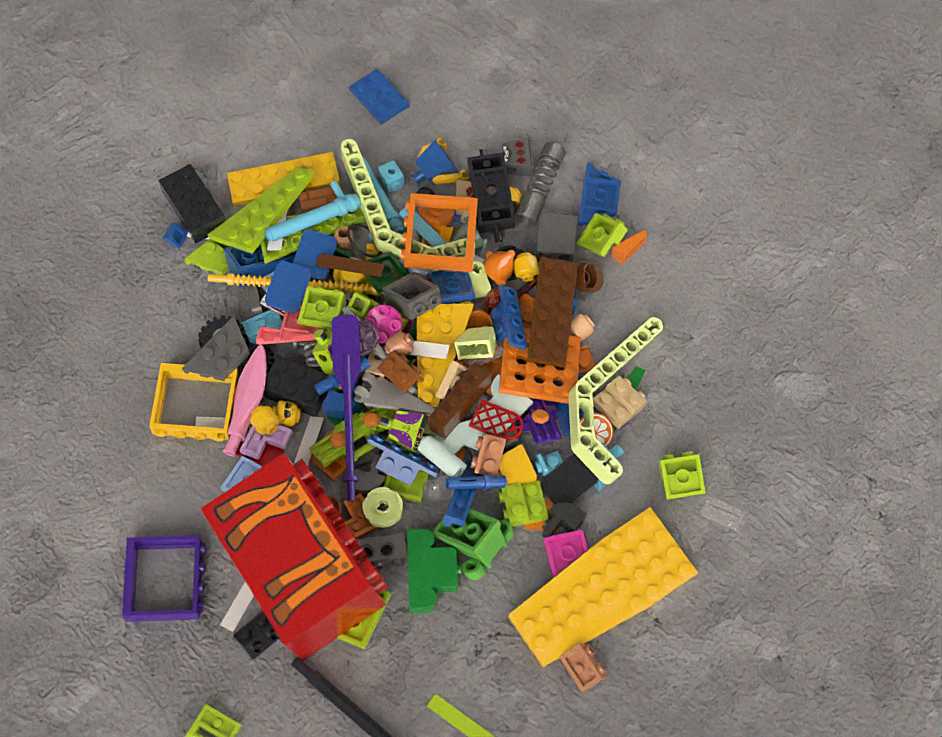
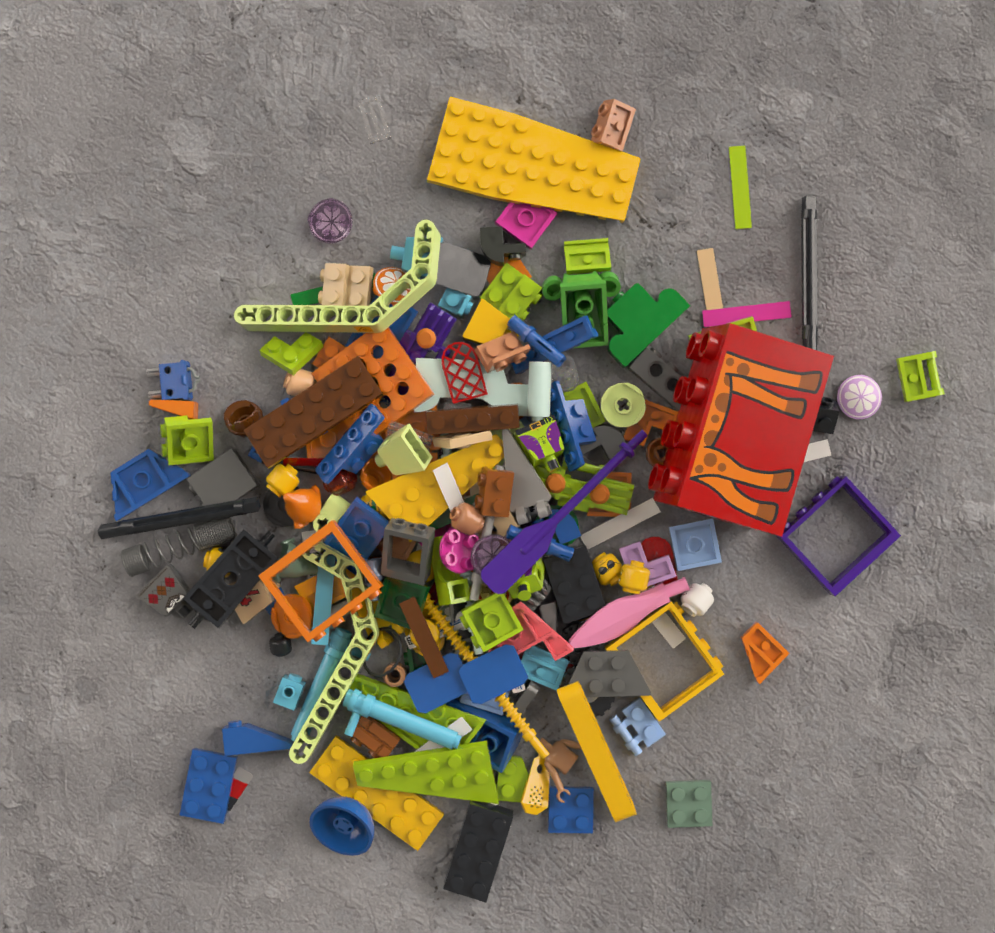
camera: 130 degrees left, 25 degrees up
(93, 345) = (688, 803): none -> sand green plate
(138, 467) = (762, 651): none -> orange wing
(161, 275) = (574, 814): none -> blue plate
(169, 356) = (642, 721): none -> light blue plate
(175, 235) = (523, 834): blue tile -> none
(181, 310) = (596, 751): none -> yellow beam
(197, 294) = (562, 759): none -> medium nougat piece
(198, 269) = (539, 780): none -> yellow piece
(212, 452) = (697, 599): none -> white head
(240, 676) = (859, 397): none -> dish
(283, 142) = (343, 825): none -> blue piece
(288, 351) = (549, 613): none -> flat silver slope
(364, 115) = (240, 782): none -> sticker
(364, 657) = (759, 312): none -> dark pink sticker
(383, 136) = (248, 738): none -> blue slope
(409, 641) = (709, 279): none -> tan sticker
(436, 165) = (241, 659): blue torso -> none
(505, 572) = (587, 256): none -> lime plate
(552, 198) = (179, 518): none -> black piece
(600, 335) = (291, 357): none -> lime plate
(647, 259) = (178, 380): none -> blue piece
(674, 429) = (330, 221): none -> clear purple dish
(681, 475) = (371, 179): lime plate -> none

